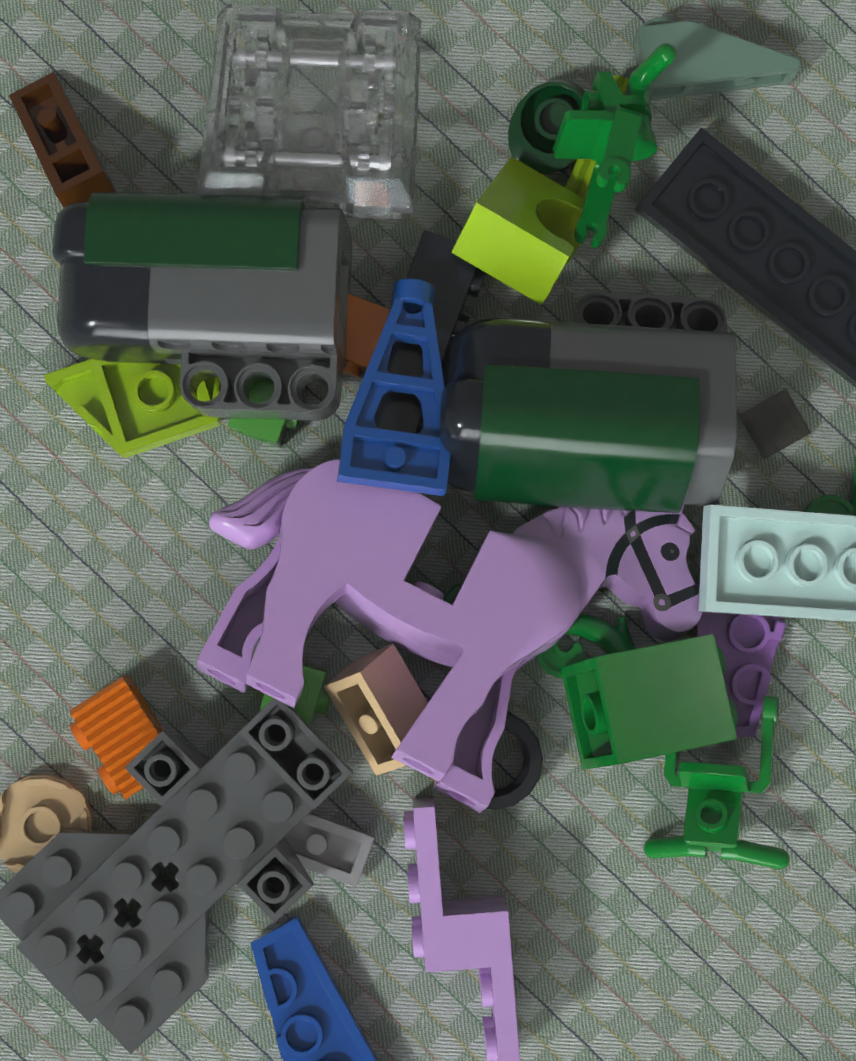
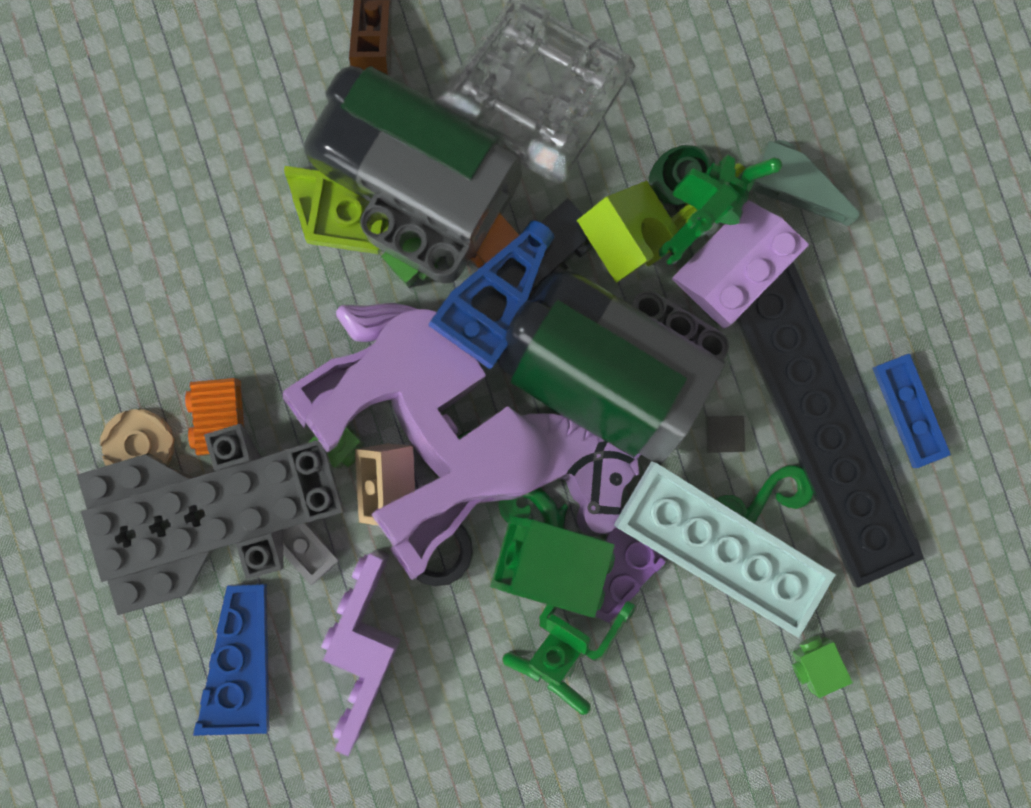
camera: 30 degrees right, 0 degrees up
(683, 201) = (739, 263): none -> lavender slope

